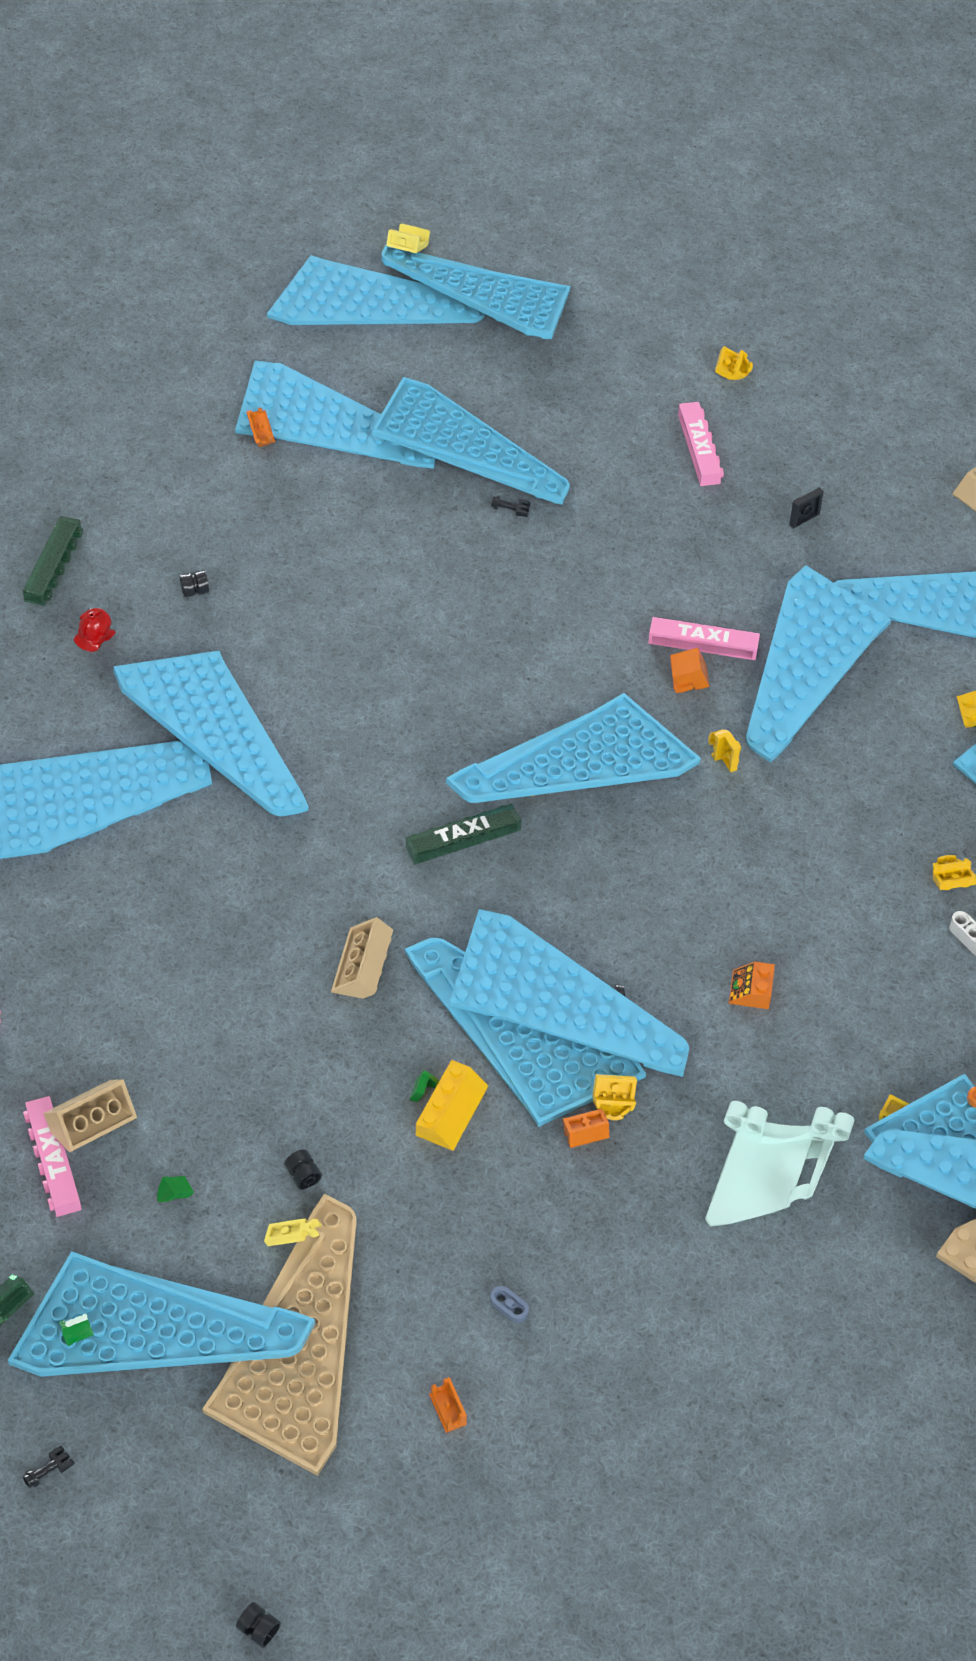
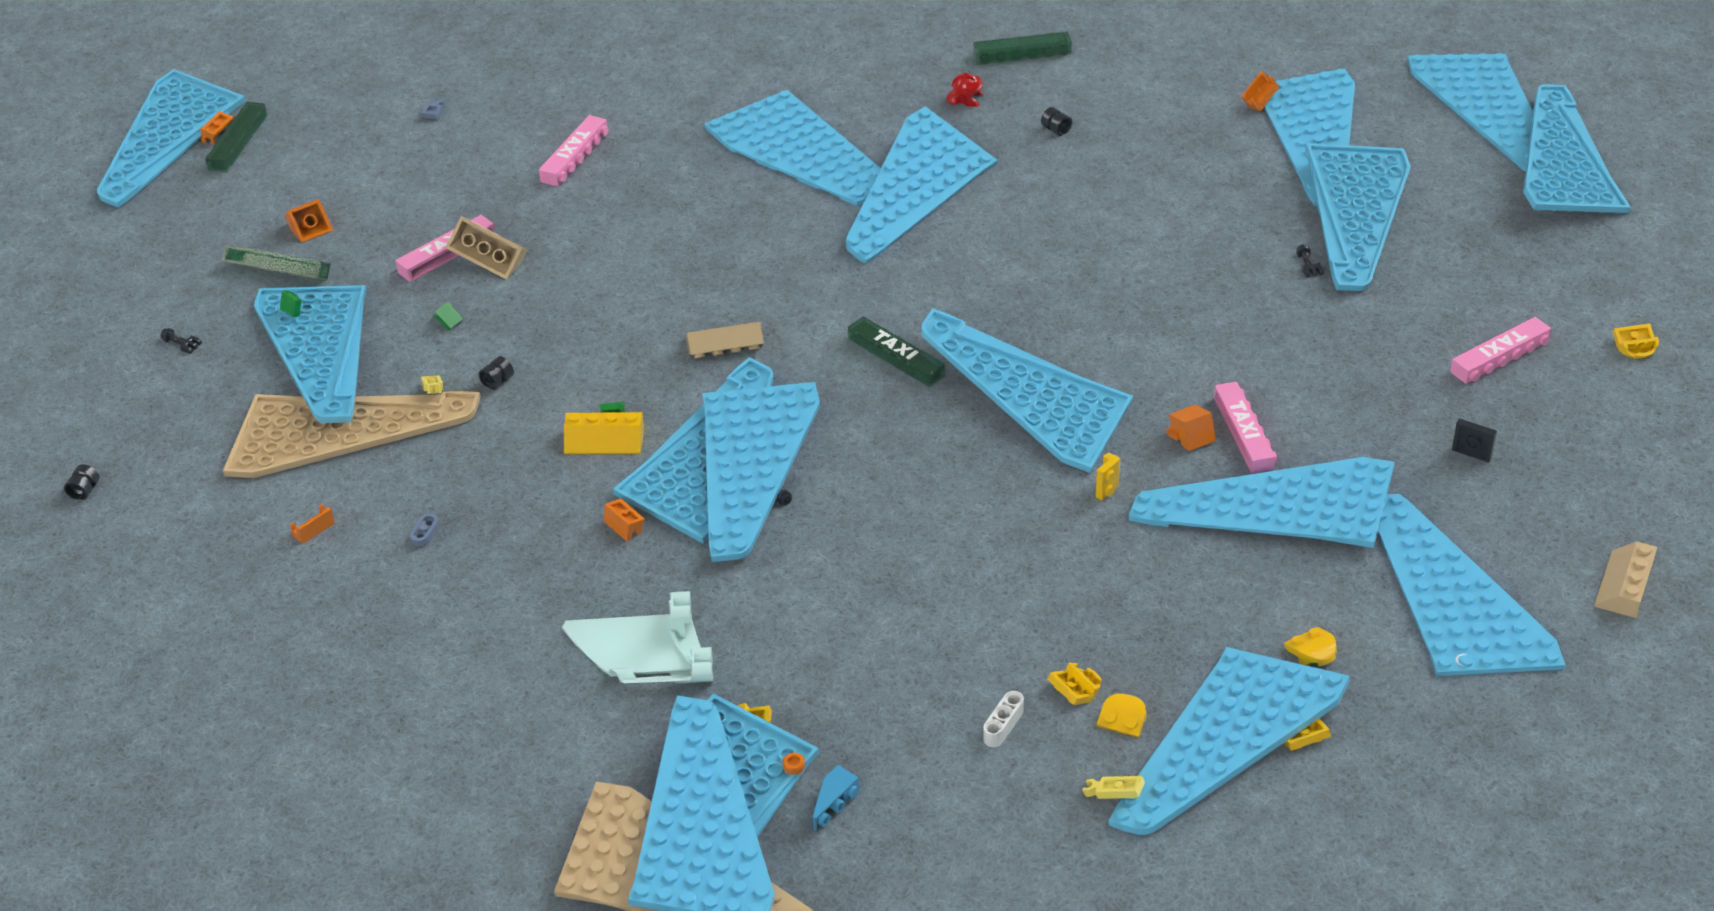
camera: 70 degrees right, 10 degrees down
(408, 238) = (1586, 99): light yellow panel -> none
(614, 1095) = (663, 522): yellow slope -> none
(752, 985) = (844, 583): orange slope -> none

